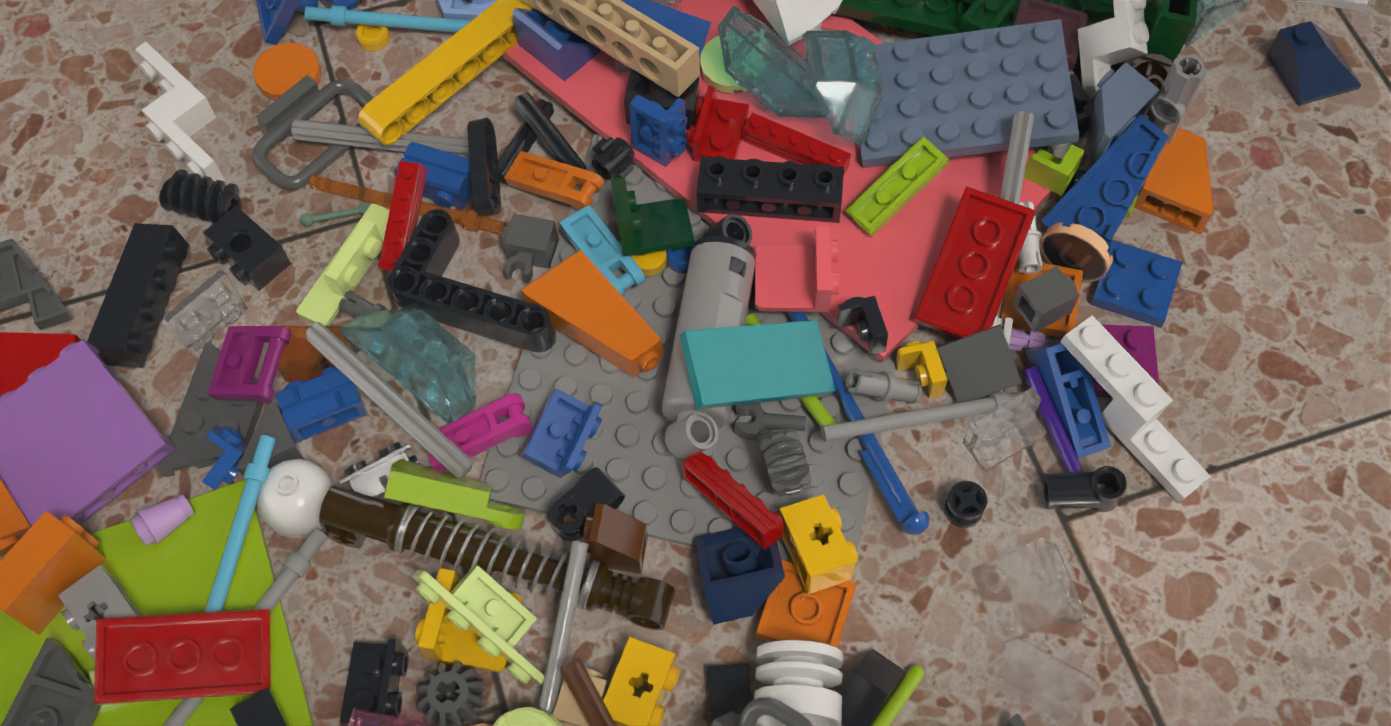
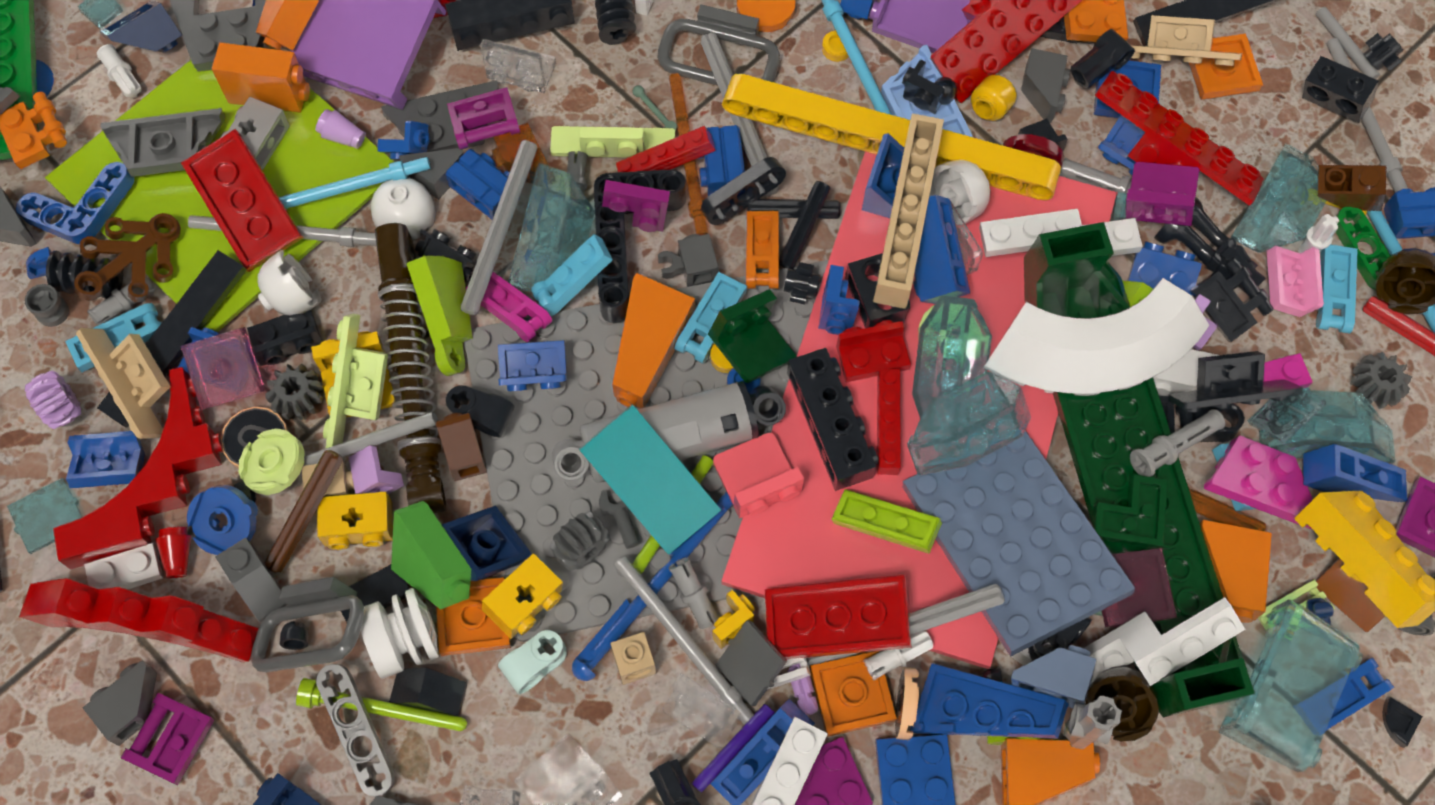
camera: 60 degrees right, 5 degrees up
(238, 232) = (587, 79): black brick -> none
(318, 655) = (286, 286): none -> white cylinder
(446, 256) = (646, 203): none -> magenta plate
(484, 353) = (572, 275): none -> medium azure plate
(598, 647) = (368, 475): none -> lavender panel
(732, 617) = (428, 556): none -> bright green slope
(733, 499) = (531, 517): red piece -> none
(868, 319) = (736, 556): black bracket -> none
(884, 573) = (531, 663): none -> light aqua piece
(925, 470) = (633, 658): none -> tan brick
(968, 495) = (622, 697): black wheel -> none
(1046, 298) = (828, 689): dark grey brick -> none
(1053, 171) = (982, 650): lime panel -> none

